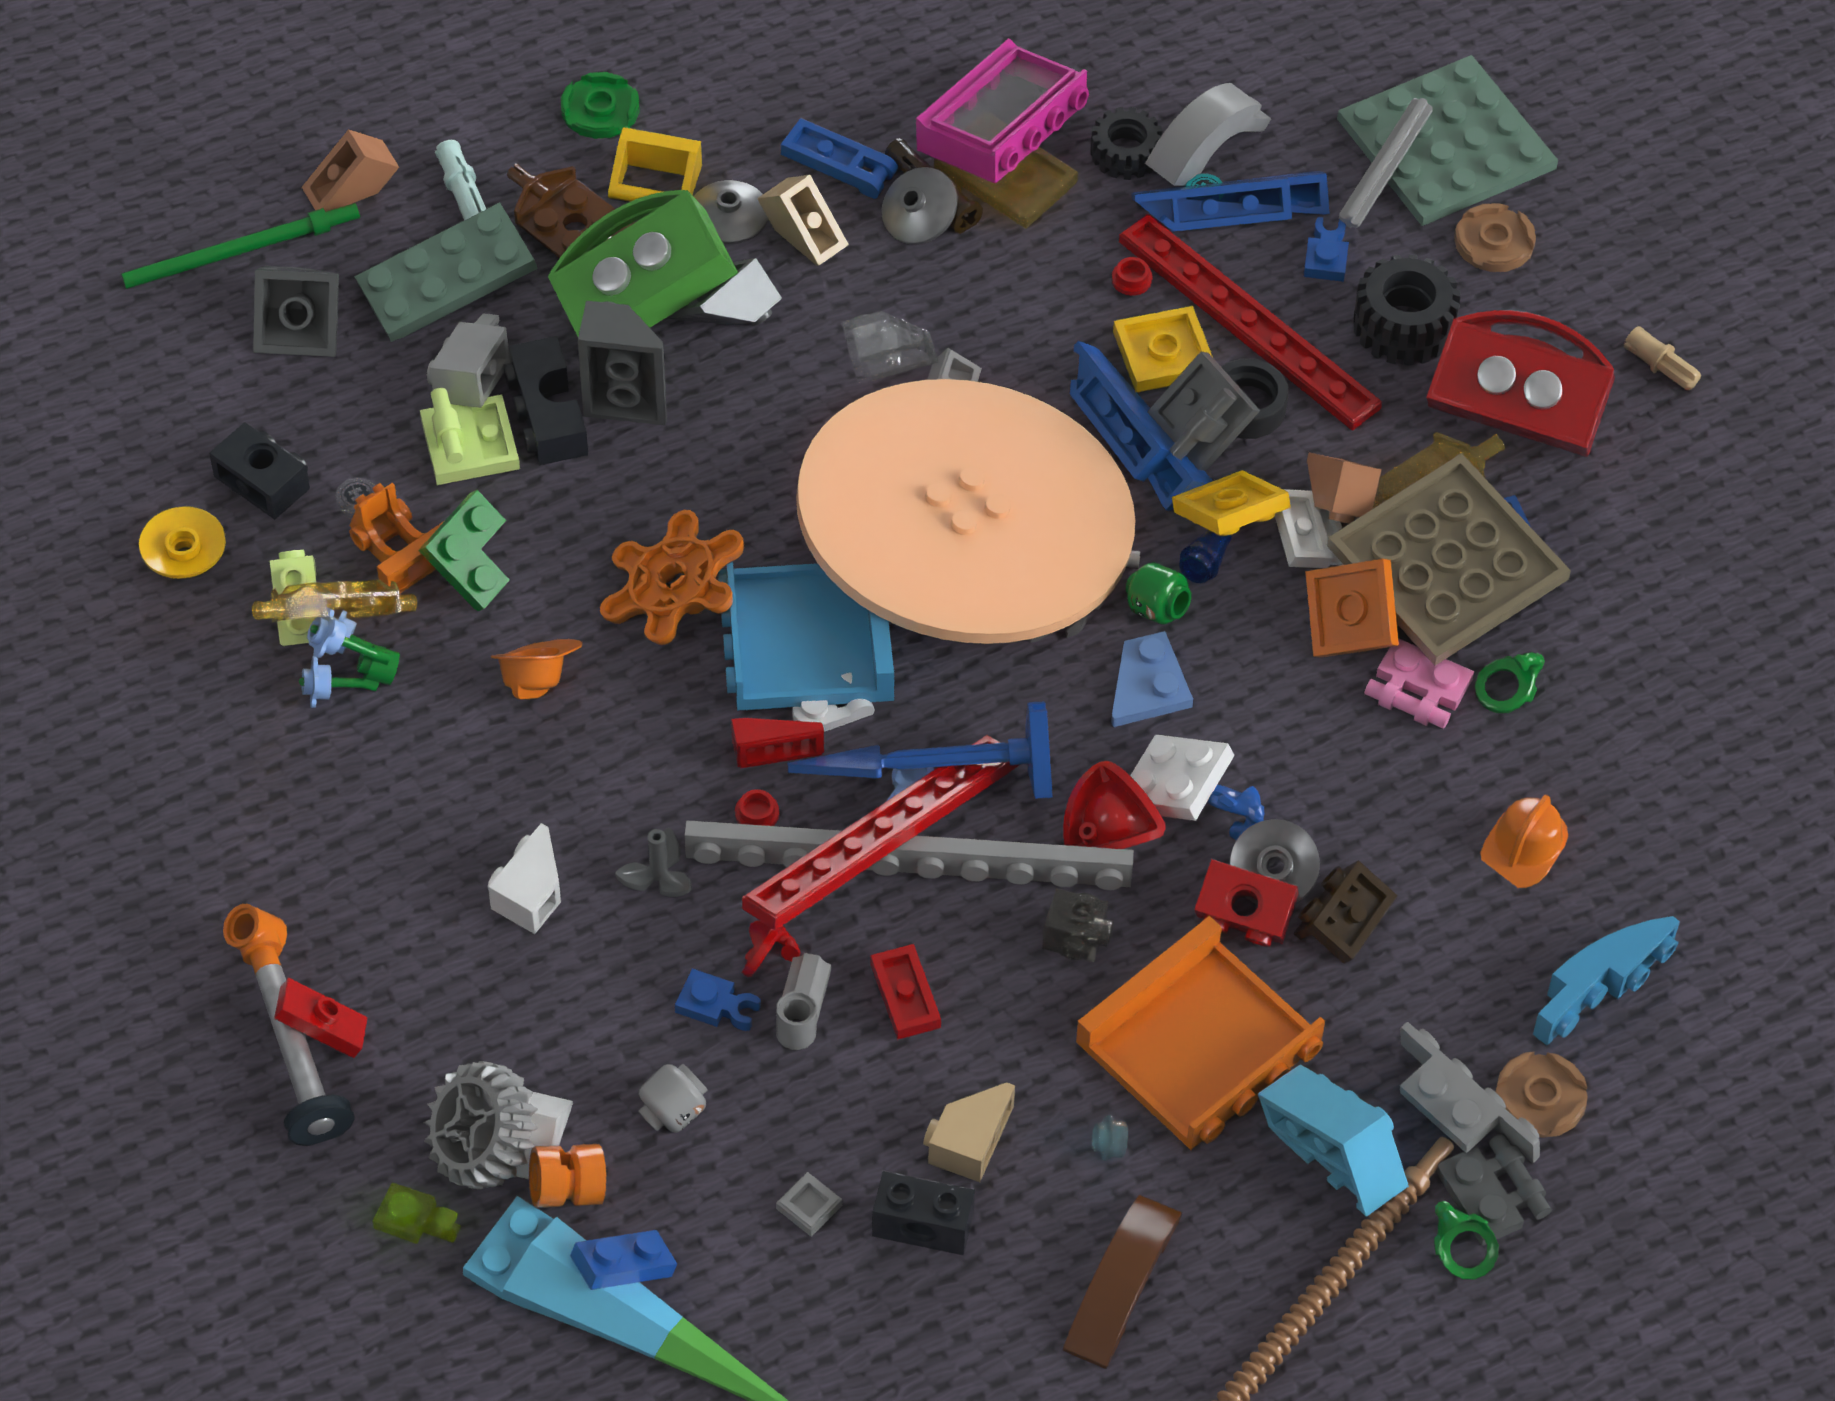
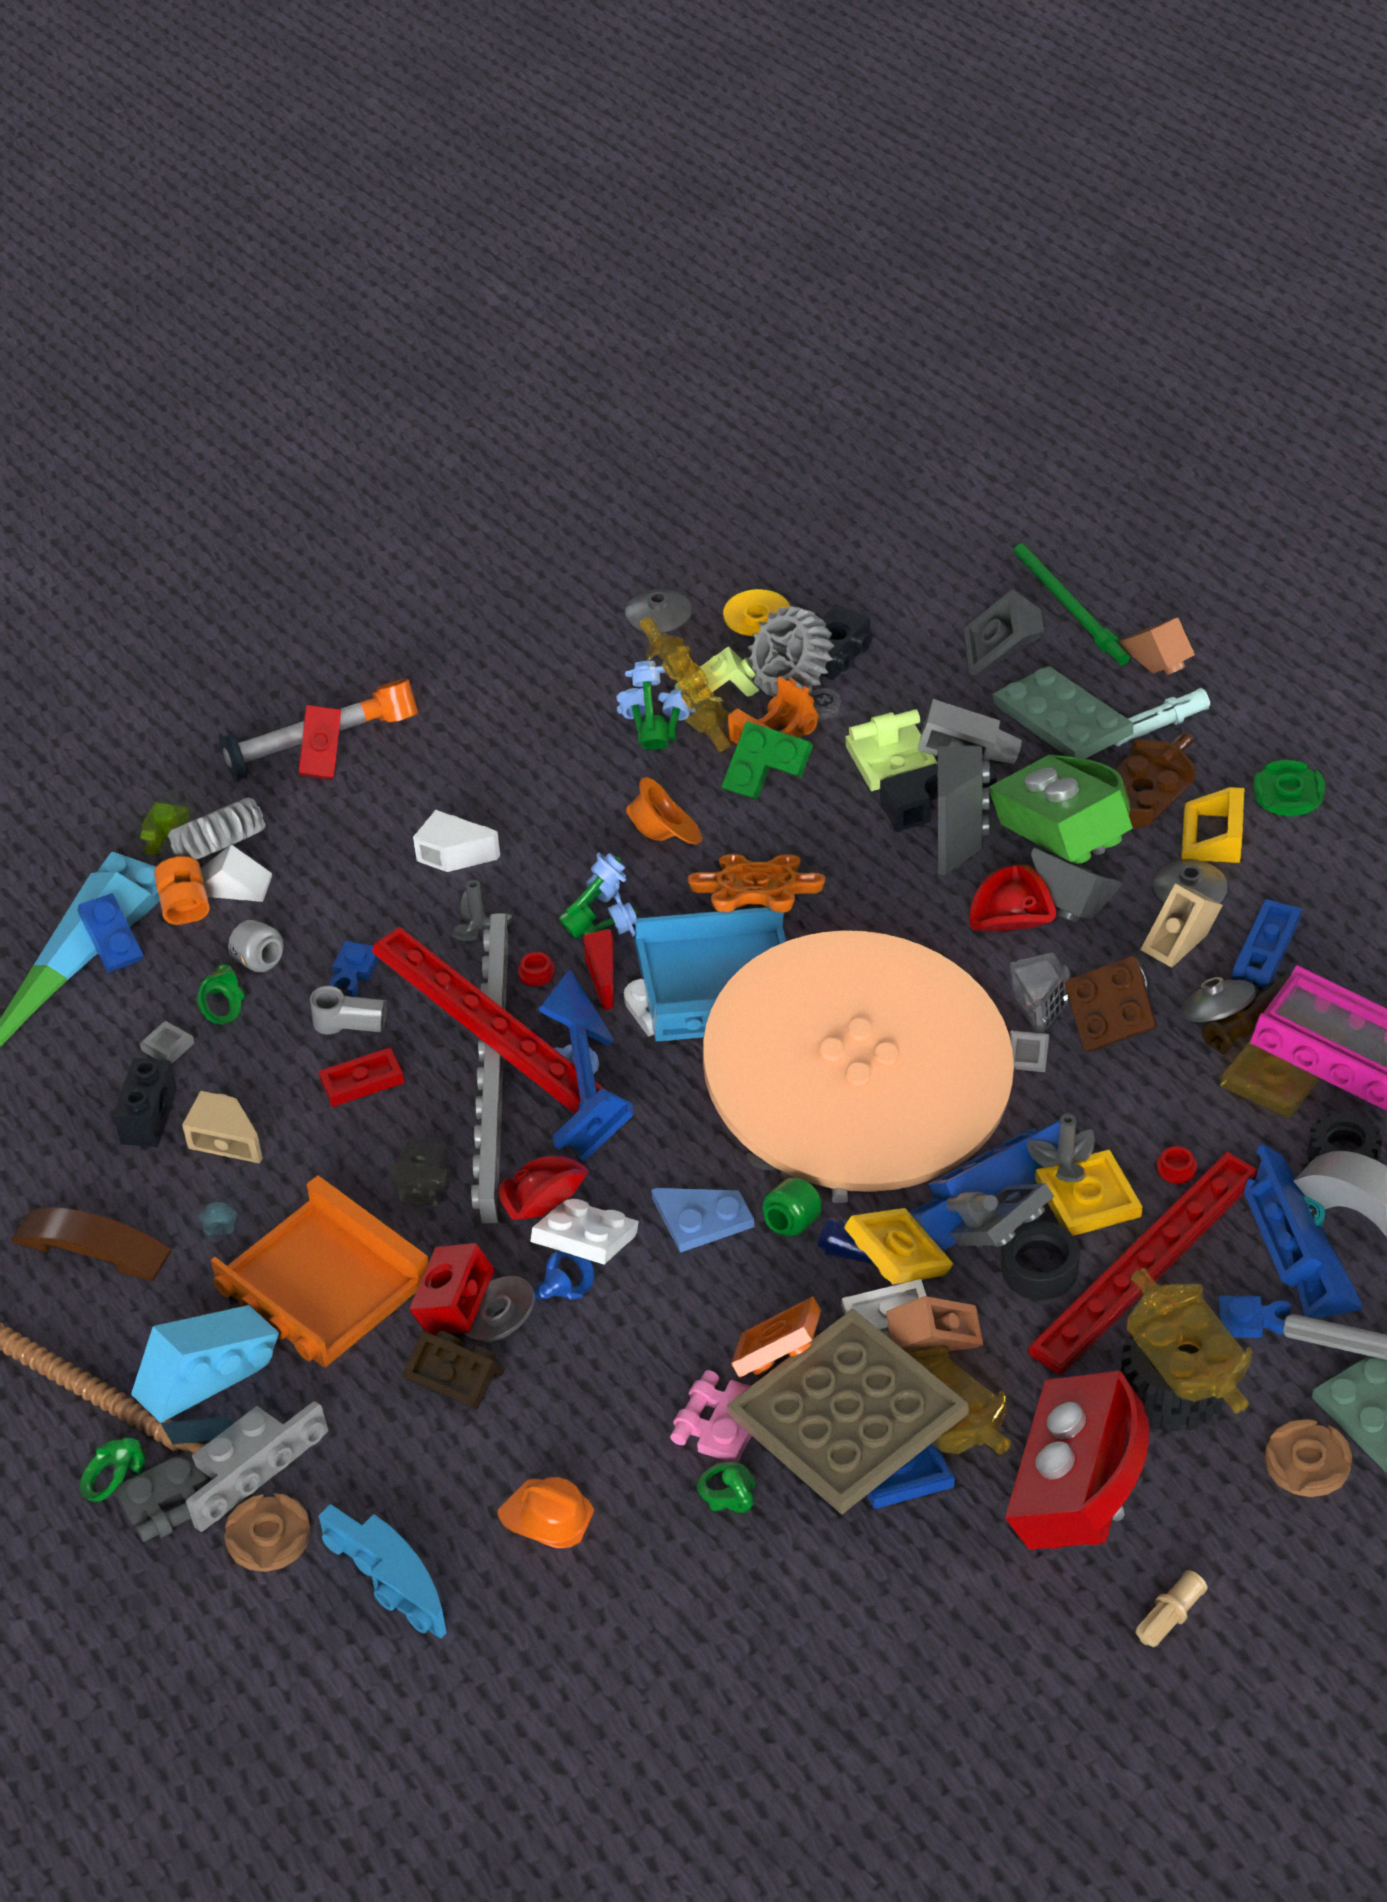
camera: 90 degrees right, 10 degrees down
(131, 666) = (667, 607): none -> flat silver dish
(289, 485) = (790, 647): none -> light grey gear
(691, 717) = (602, 885): none -> plant
(738, 1133) = (226, 982): none -> green piece
(743, 351) = (1011, 900): none -> red hat
(763, 940) = (403, 988): red piece -> none
(912, 284) = (1111, 1003): none -> reddish brown plate
(1125, 344) = (1070, 1149): none -> dark grey plant
(1416, 1152) = (195, 1430): none -> black sticker
(1437, 256) = (1180, 1316): none -> clear yellow plate

